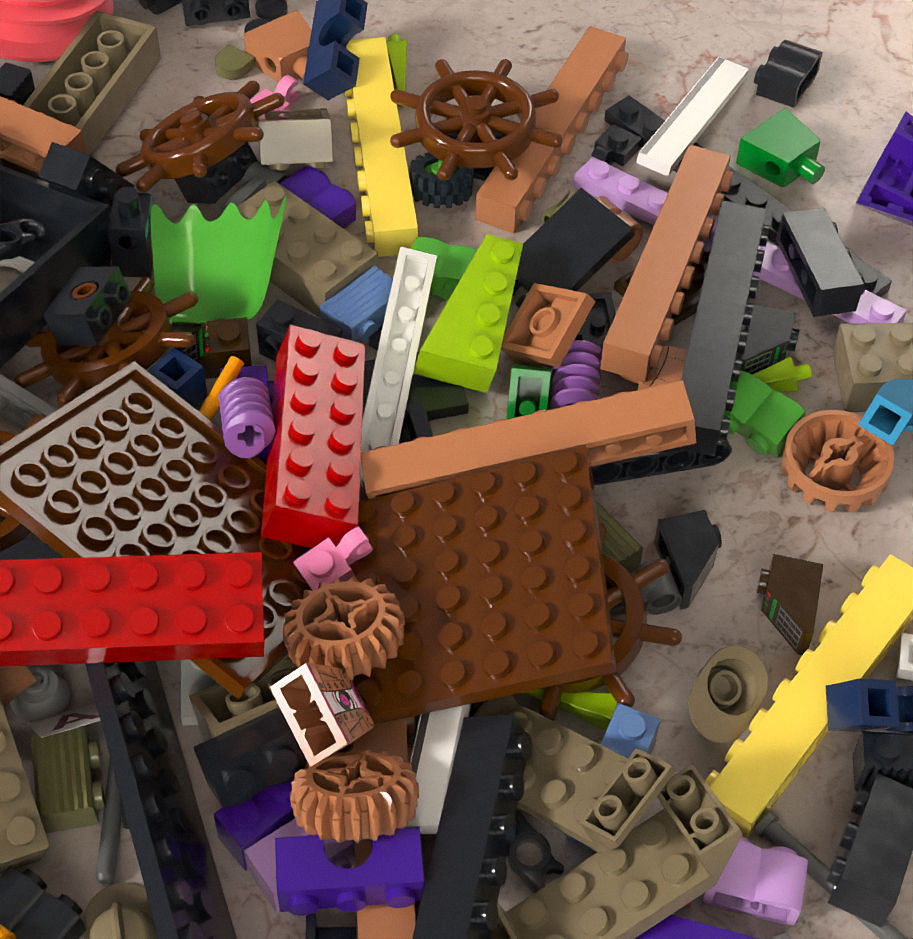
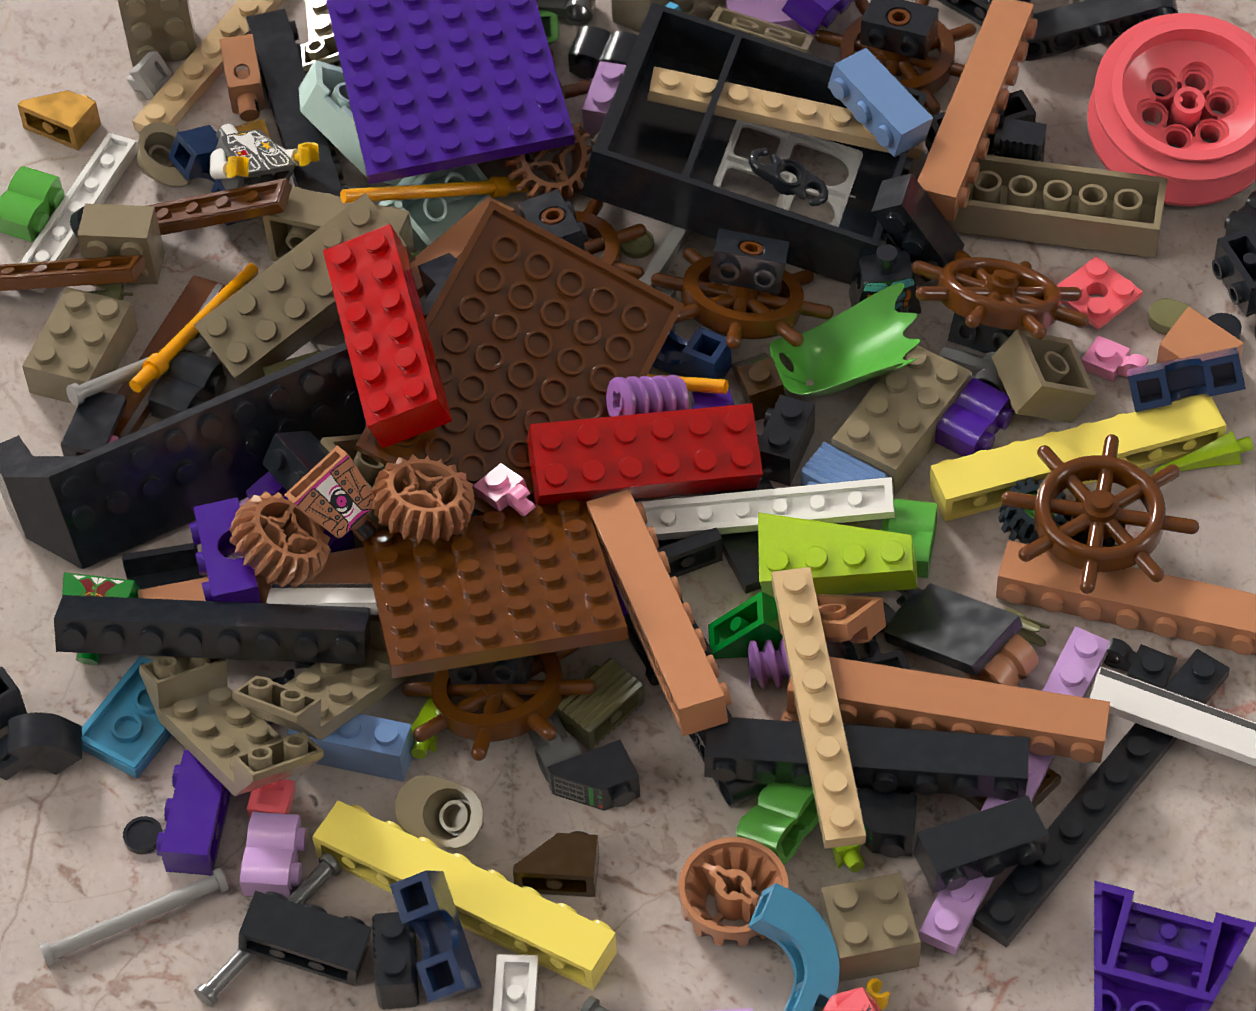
camera: 85 degrees right, 0 degrees up
(177, 93) = (1100, 279): none -> coral piece
(675, 332) = (818, 709): none -> tan plate
(781, 150) = (1182, 821): green torso -> none

